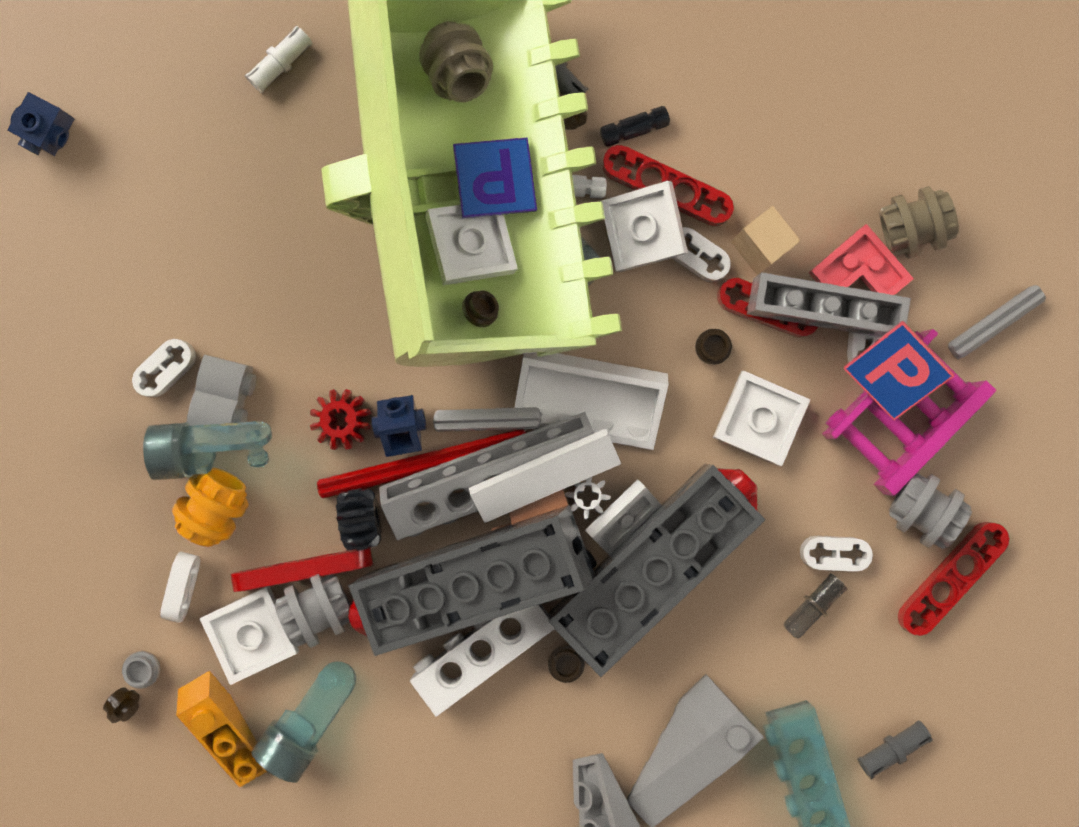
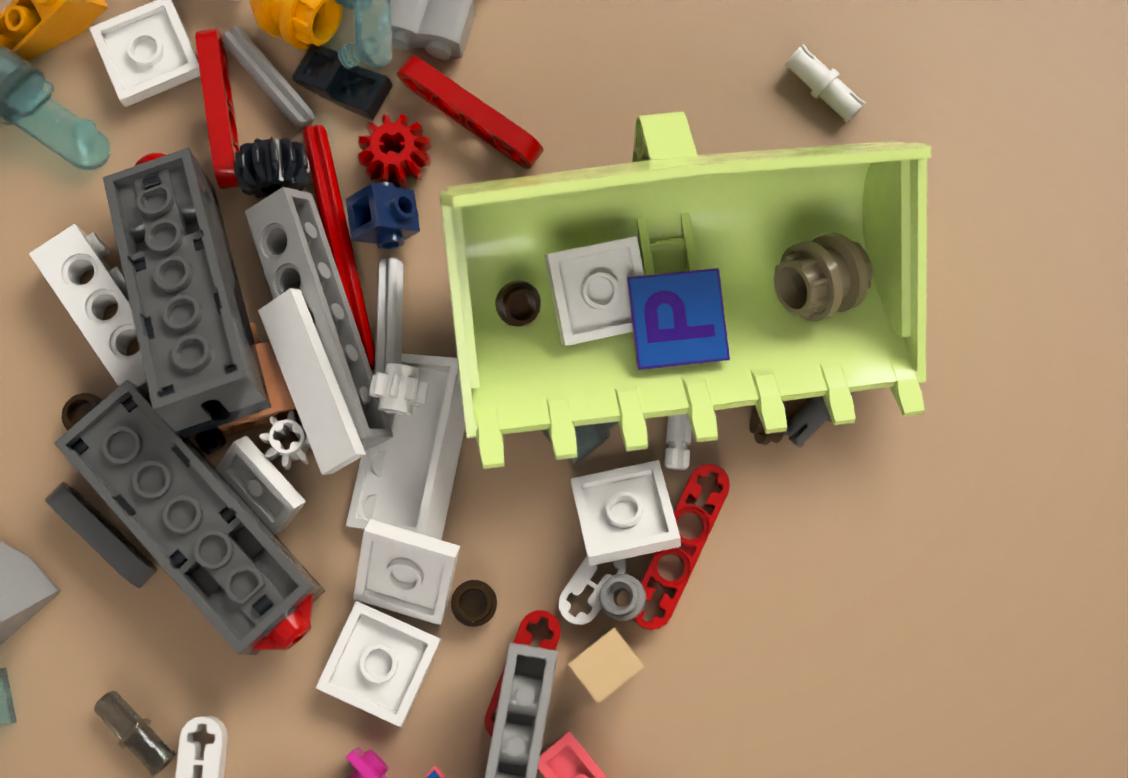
camera: 90 degrees right, 10 degrees down
(271, 481) = (352, 88): none -> black slope
(273, 530) = (268, 78): none -> light grey axle
(305, 357) = (470, 112): none -> red beam
(313, 610) = (164, 109): light grey piece -> none
(550, 405) = (398, 389): none -> white gear
(635, 126) = (755, 506): black axle -> none
(664, 642) = (101, 535): none -> dark grey beam
(693, 397) = (405, 572): none -> white plate
(715, 239) = (612, 588): none -> light grey plate

